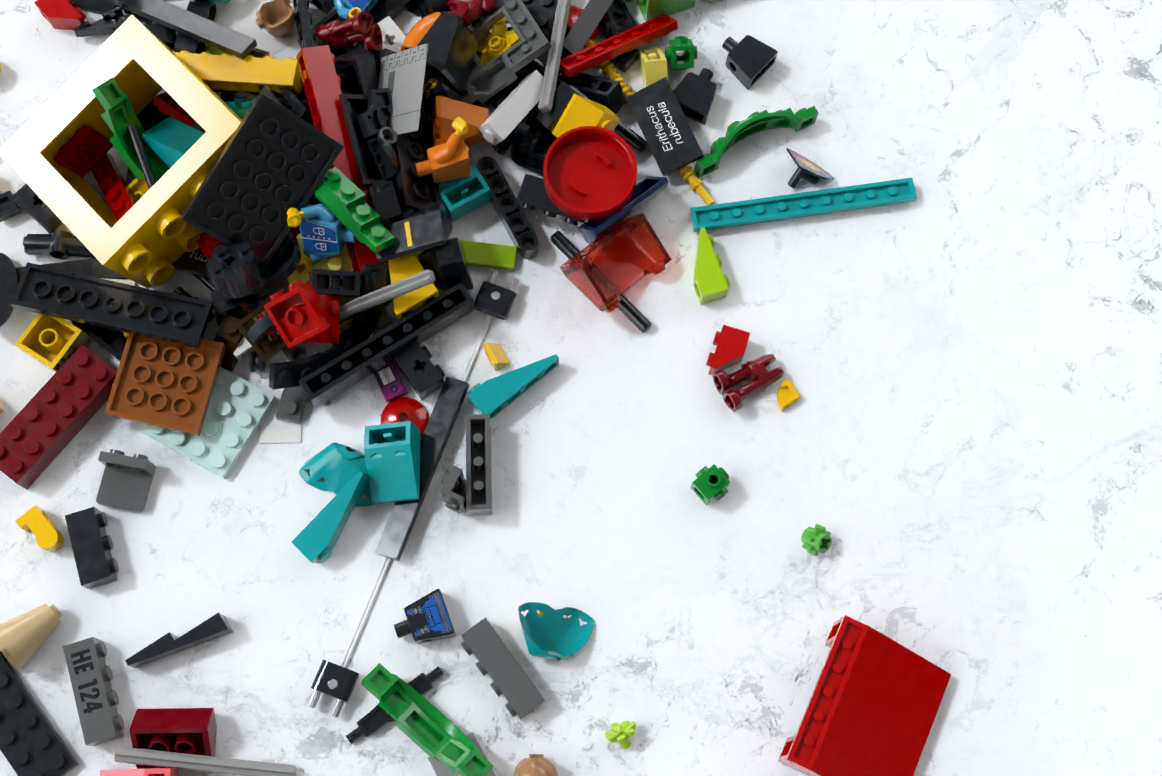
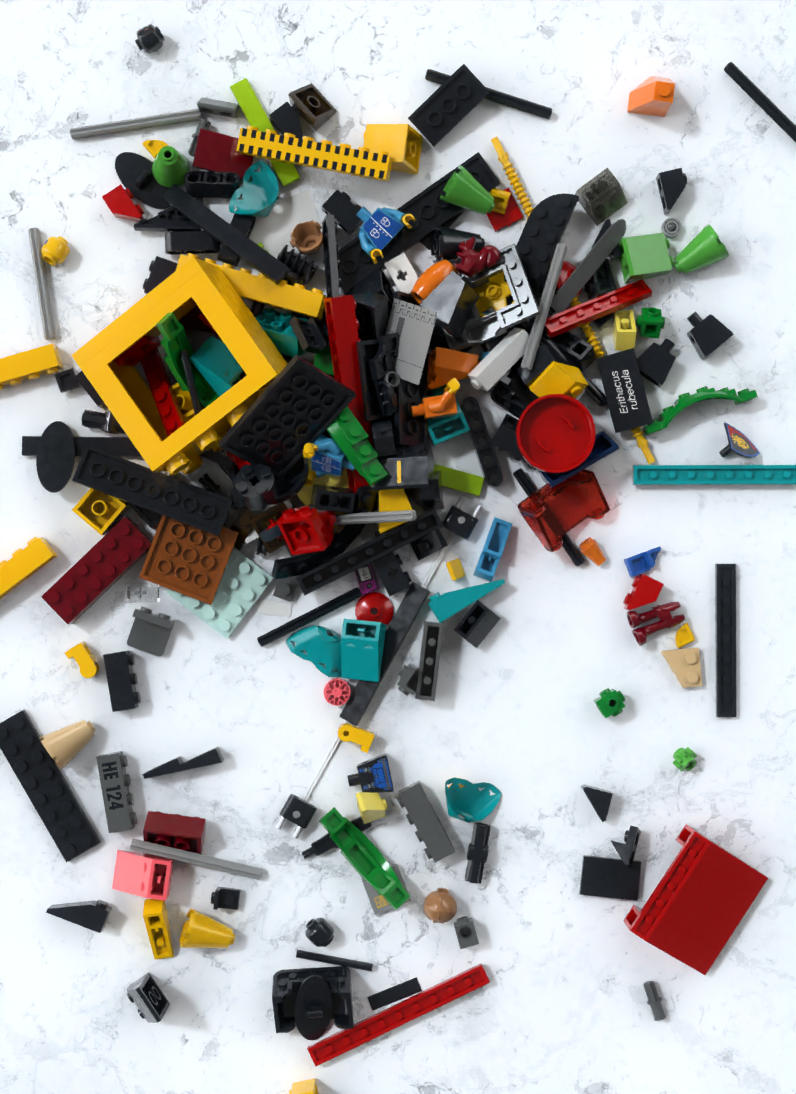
camera: 15 degrees right, 15 degrees up
(109, 435) = (141, 592): none -> clear slope
(276, 49) = (297, 265): none -> black piece
(323, 437) = (309, 617): none -> black axle
(325, 529) = (301, 696): teal slope -> none
(340, 34) = (361, 269): dark red piece -> none
(368, 521) = (337, 691): none -> coral wheel
(396, 570) = (352, 733): none -> yellow leg
(427, 657) = (370, 806): none -> light yellow slope
(460, 329) = (428, 544): none -> black slope
(532, 412) = (477, 624): none -> black brick
(538, 326) = (492, 549): none -> dark azure slope
(574, 699) = (477, 852): none -> black piece
(621, 733) = (509, 882): lime plant -> none
(659, 311) = (592, 550): none -> orange cone
(708, 277) = (637, 526): lime slope -> none
(718, 607) = (599, 799): none -> black slope
(721, 315) = (641, 562): none -> blue slope
(751, 707) = (609, 878): none -> black tile
(766, 663) = (628, 850): none -> black slope
(795, 429) = (685, 665): none -> tan wing
(838, 394) = (725, 639): none -> black tile

